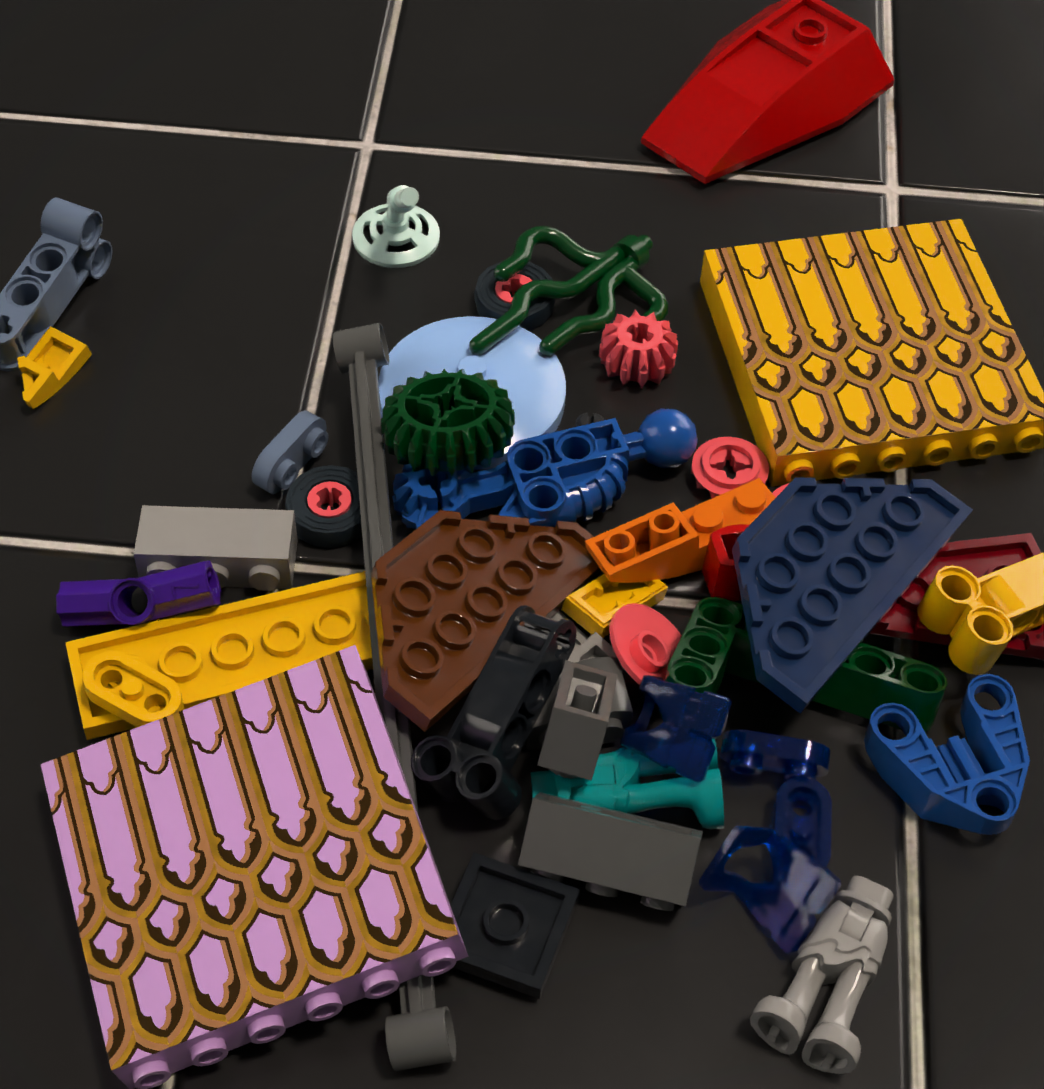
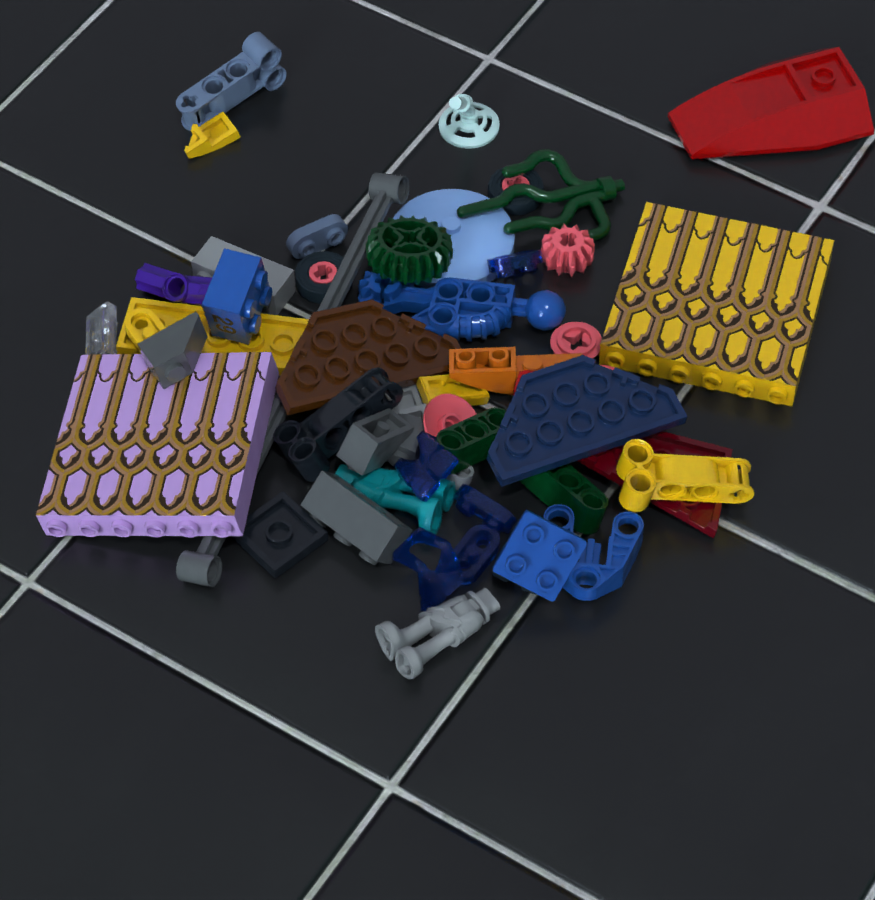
camera: 30 degrees right, 0 degrees up
(47, 715) = (102, 330): none -> clear plate
(203, 703) = (174, 350): none -> dark grey slope
(249, 579) = (237, 296): none -> blue brick
(582, 388) = (523, 261): none -> clear blue plate
(921, 800) = (538, 556): none -> blue plate

